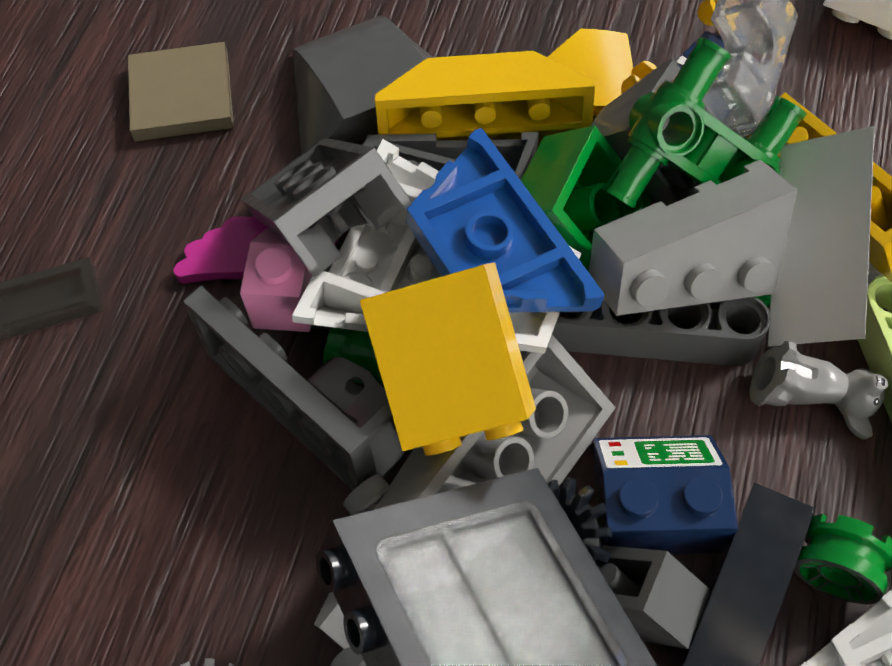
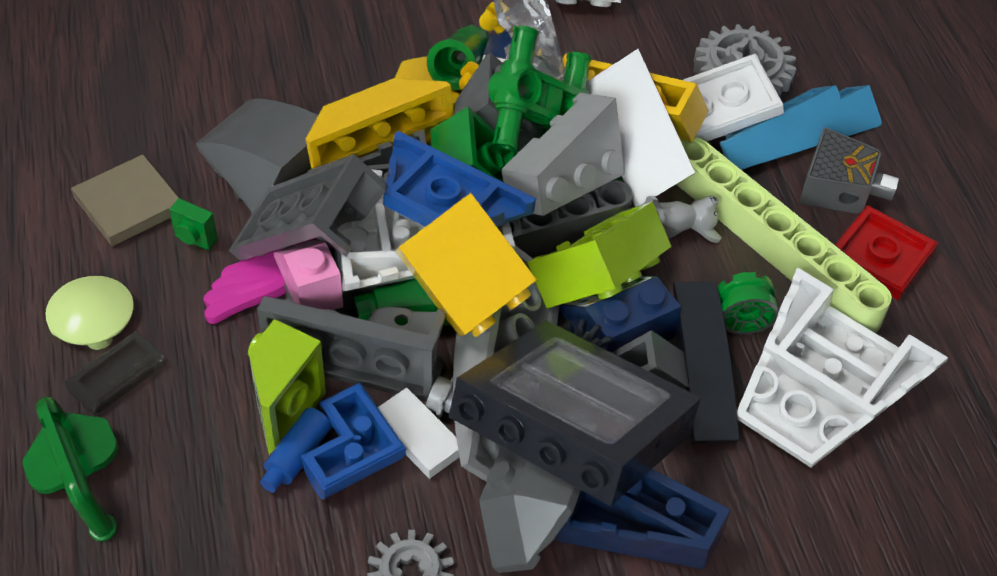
camera: 35 degrees left, 10 degrees down
(61, 212) = (90, 311): none -> yellowish green dish
(162, 490) = (301, 438): none -> blue cylinder
(175, 406) = (285, 377): none -> lime slope
(221, 151) = (193, 224): none -> green plate
(235, 528) = (363, 444): none -> blue brick
(307, 512) = (426, 438): none -> white tile
(648, 39) = (453, 53): none -> green plant
(677, 407) = (603, 258): none -> lime wedge

